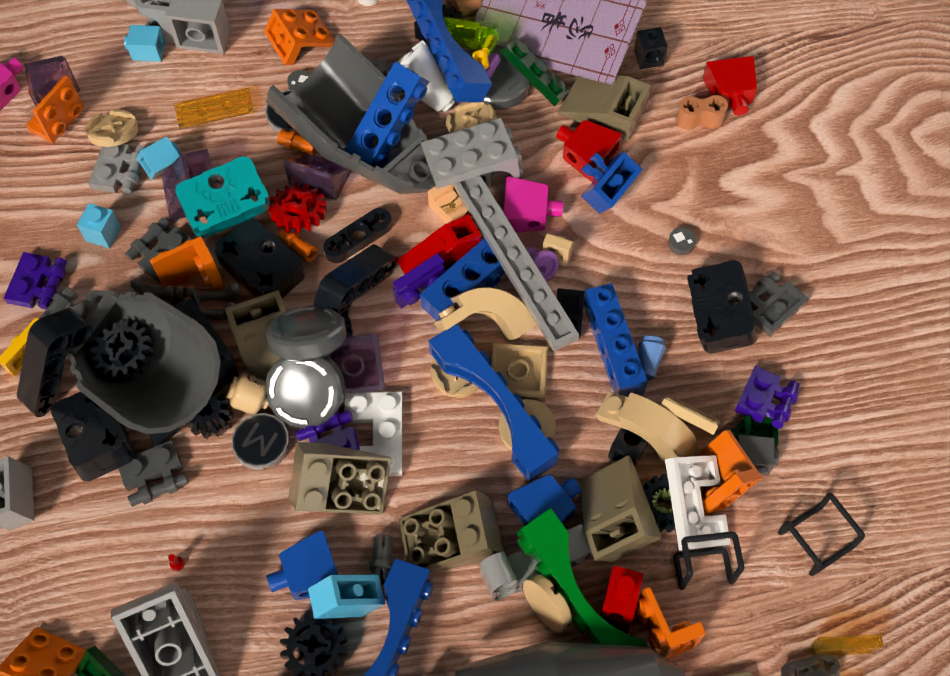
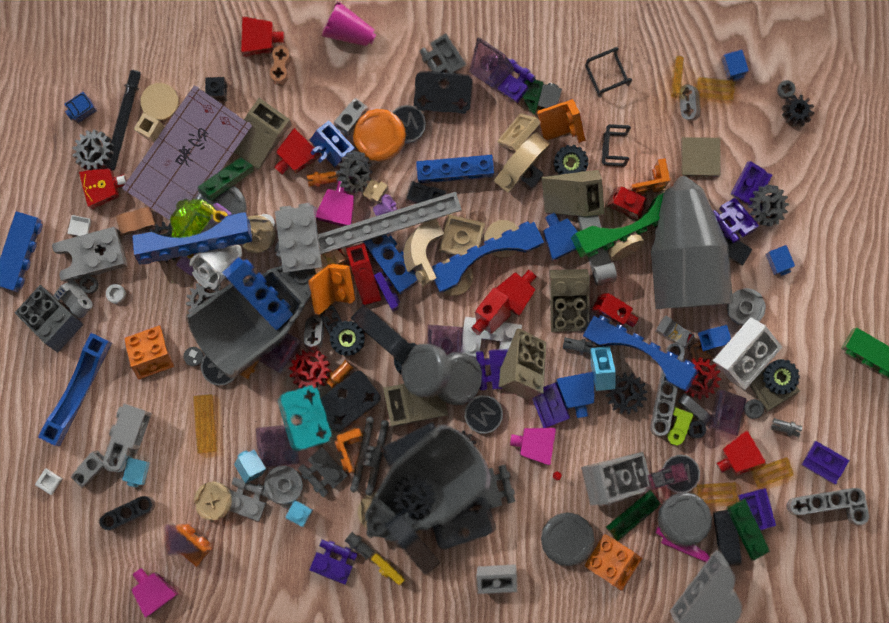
camera: 80 degrees left, 20 degrees up
(75, 592) = (567, 539): none -> dark grey piece
(92, 42) = (117, 513): none -> black beam
(138, 203) = (283, 485): none -> light grey tile
(220, 521) = (535, 444): none -> dark pink torso
(247, 393) = (453, 416): tan head -> none
(281, 532) = (551, 406): none -> dark purple plate
(344, 228) = (348, 328): none -> black bush
(347, 203) = (310, 333): none -> flat silver beam
(408, 417) = (492, 312): none -> red torso
(410, 204) = (331, 285): none -> orange bracket
(448, 590) = (608, 307): none -> red torso
(449, 454) = (518, 290): none -> red torso
(560, 180) = (321, 178): none -> orange pin
(588, 209) = (354, 172): none -> dark grey gear
(638, 238) = (379, 135): none -> orange piece
(650, 354) = (467, 147): medium blue cone -> none
(656, 202) = (348, 118): none -> light grey leg
(664, 275) = (413, 122): none -> black tile
(681, 241) = (382, 102): dark grey tile -> none
(684, 480) = (562, 146): white plate -> none
(778, 173) = (348, 27): none -> dark pink cone
(780, 360) = (489, 64): none -> clear purple slope

